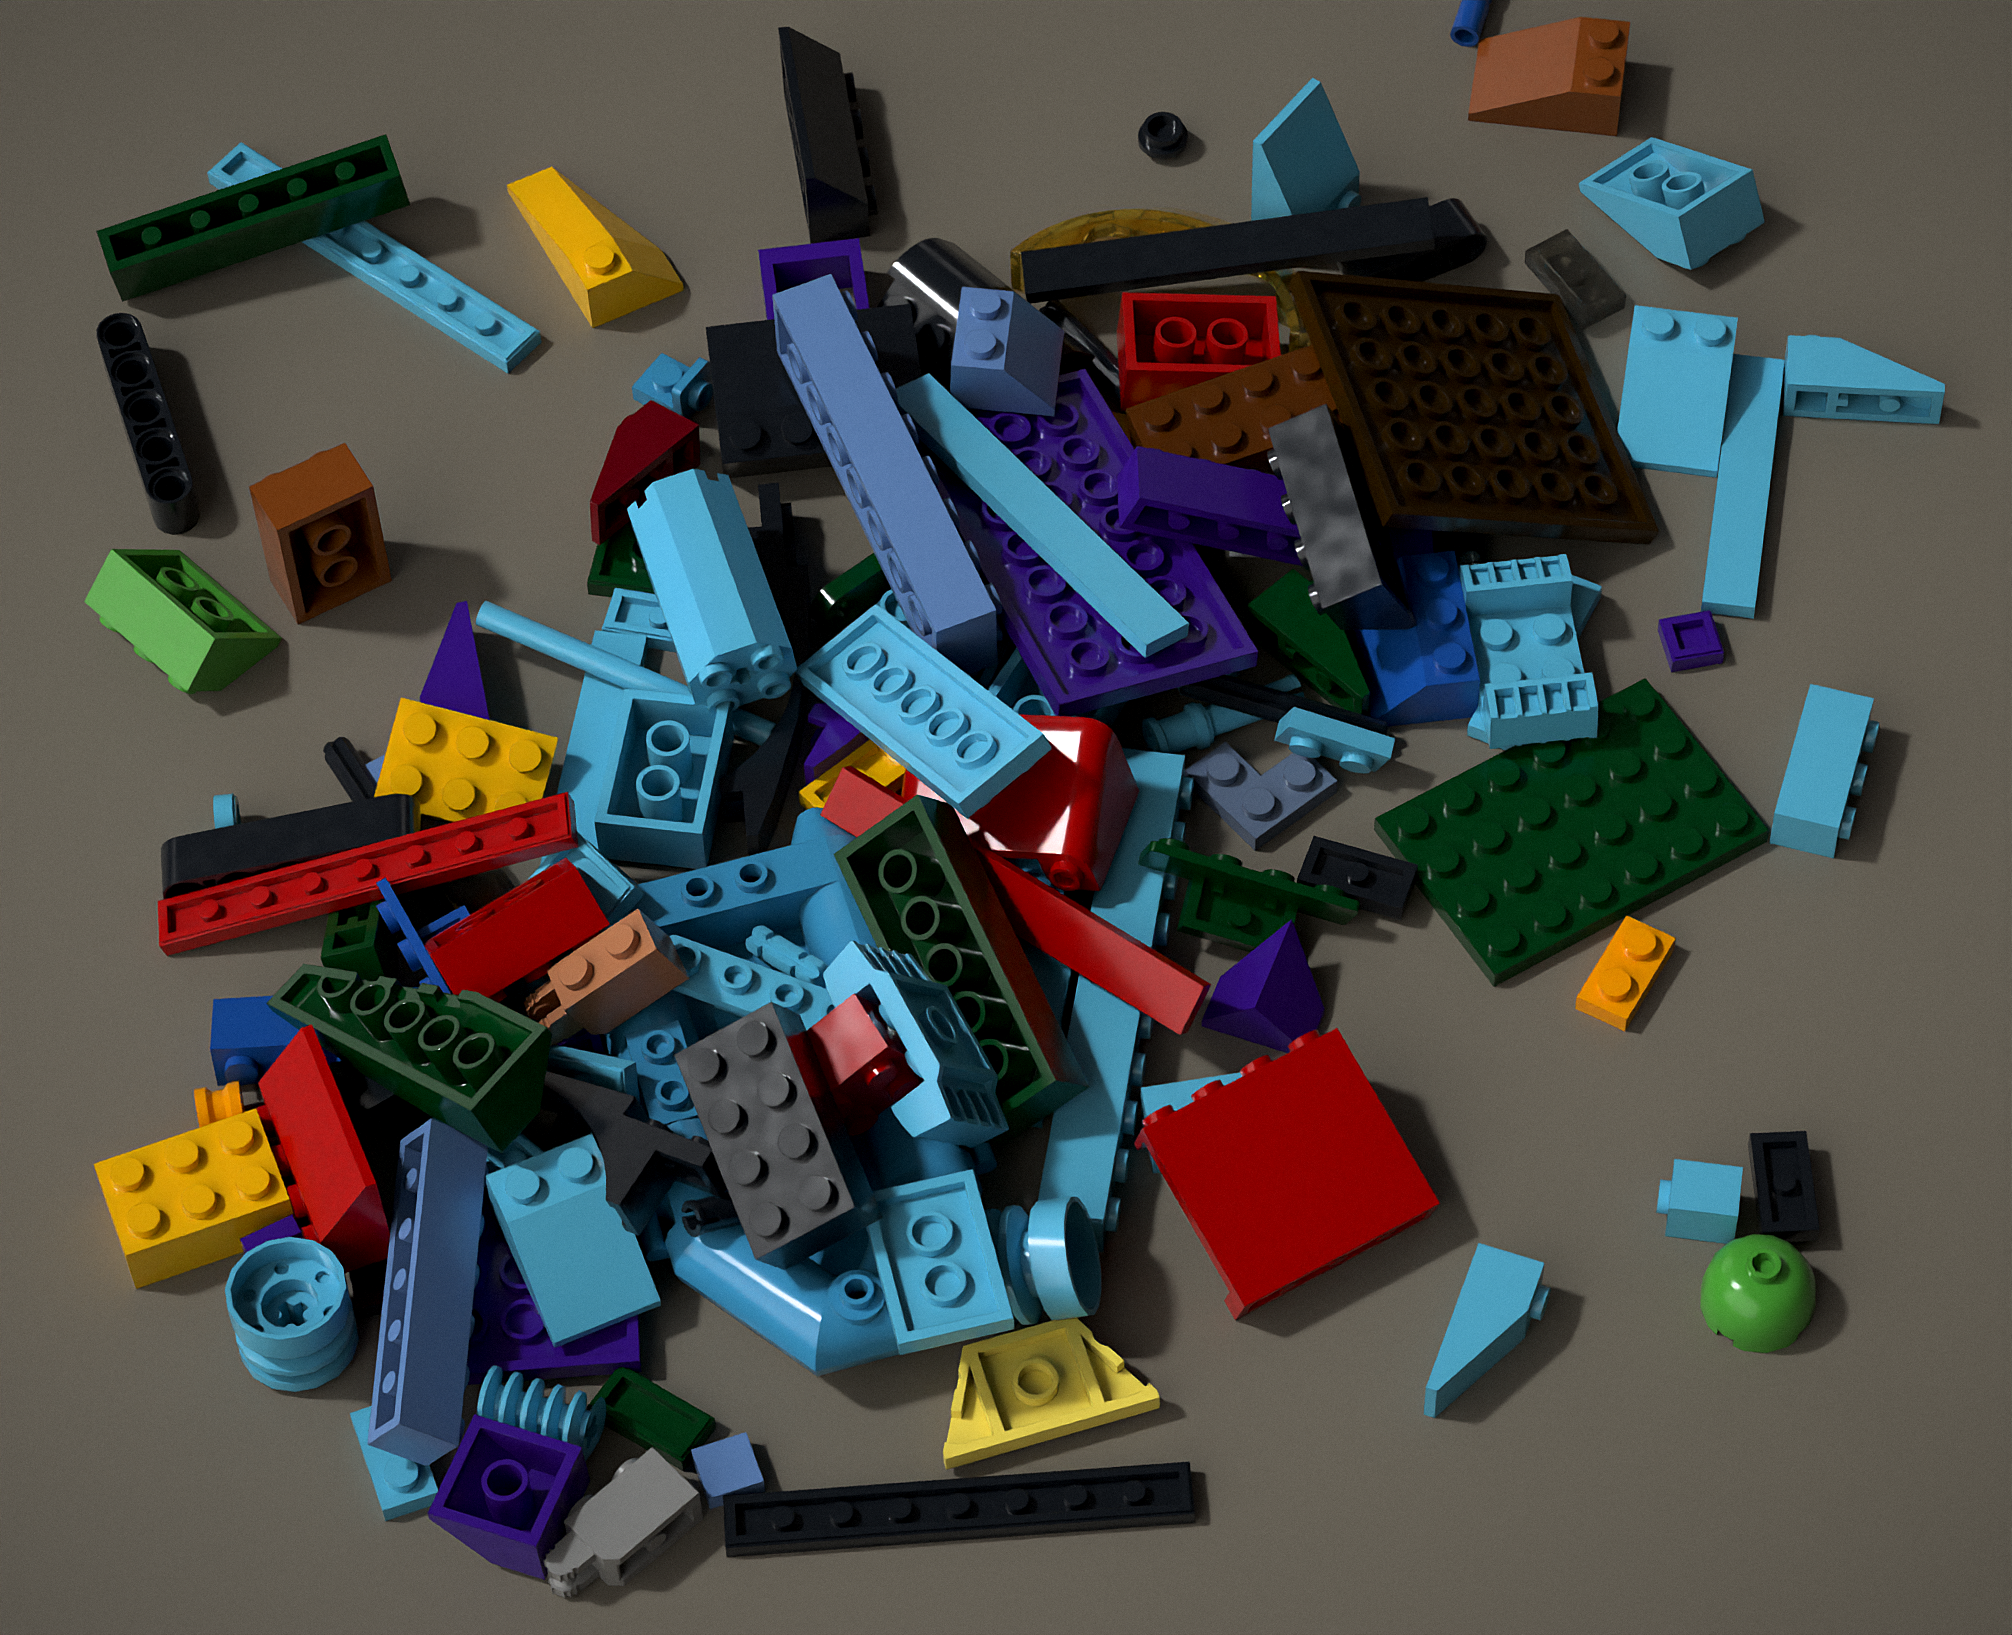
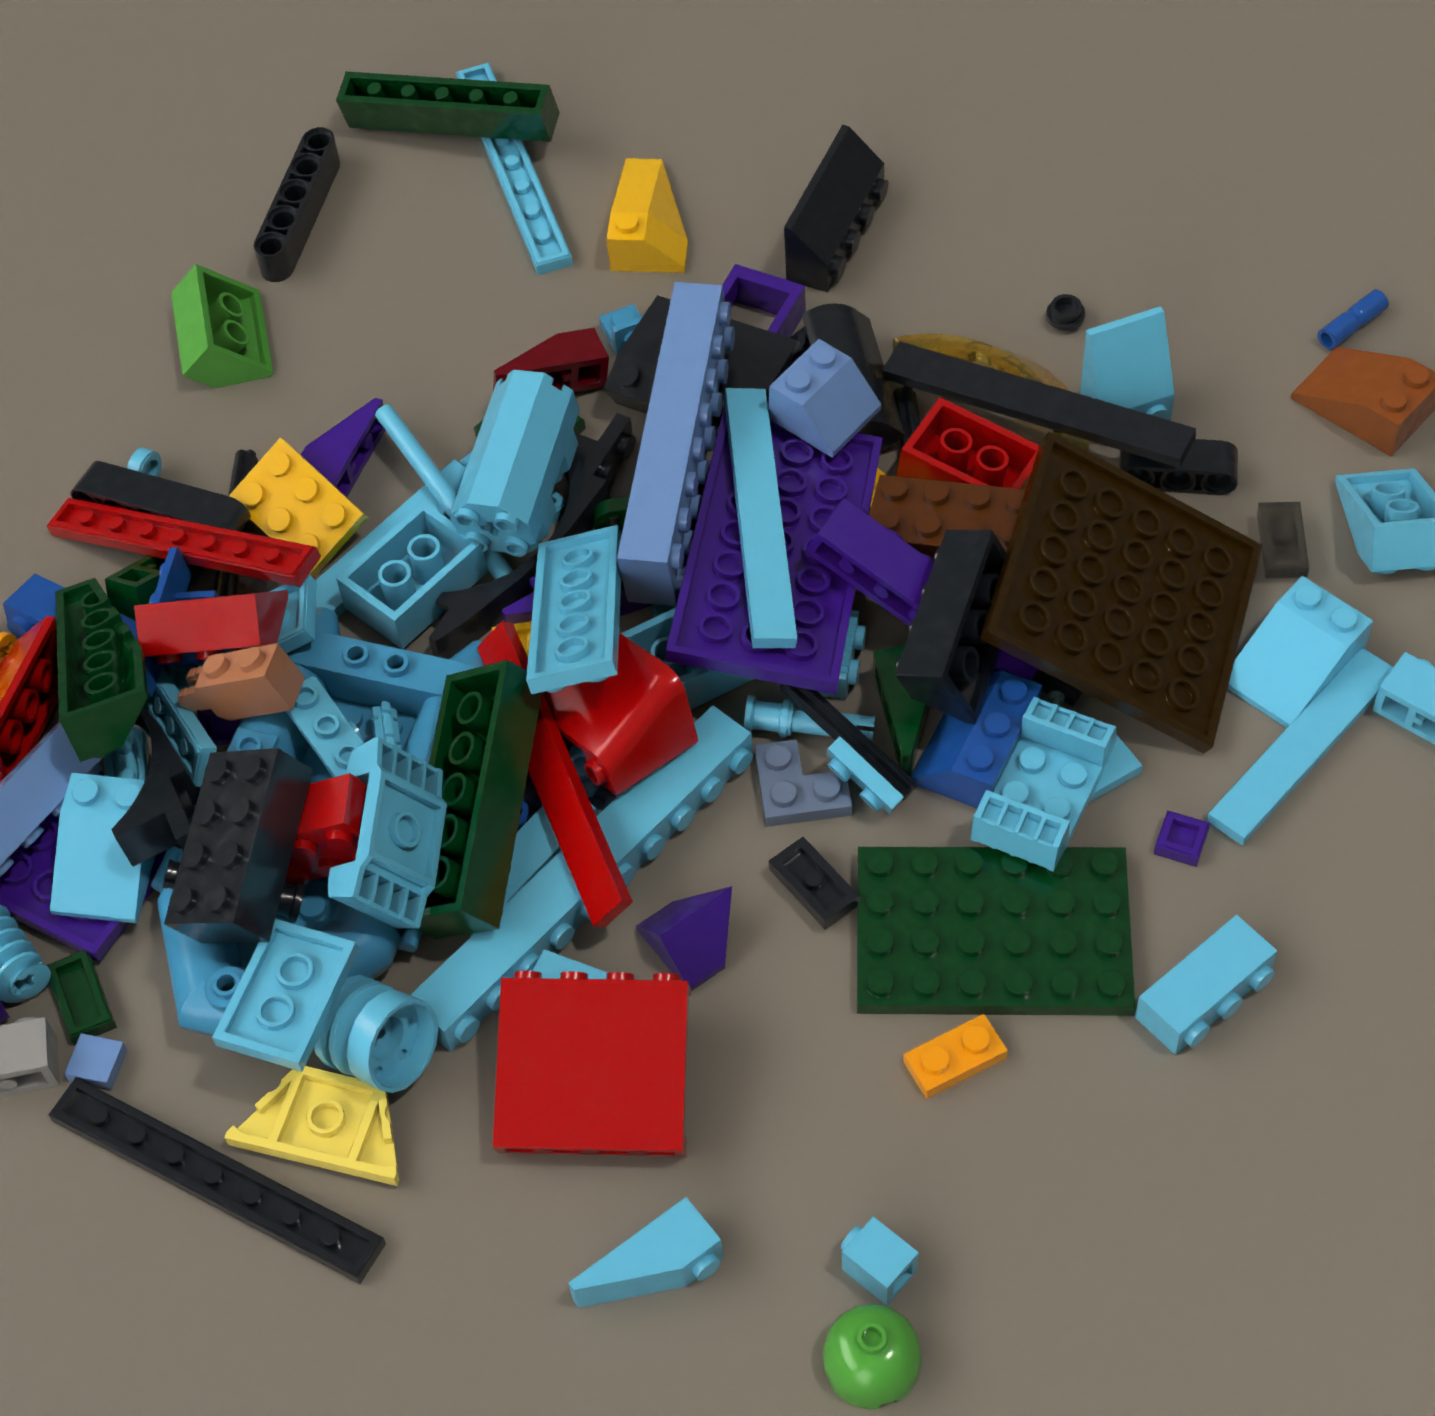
camera: 35 degrees right, 0 degrees up
(321, 533) = (321, 312): dark orange brick -> none
(1239, 903) = (710, 858): dark green bracket -> none
(1783, 1185) = (949, 1284): black plate -> none

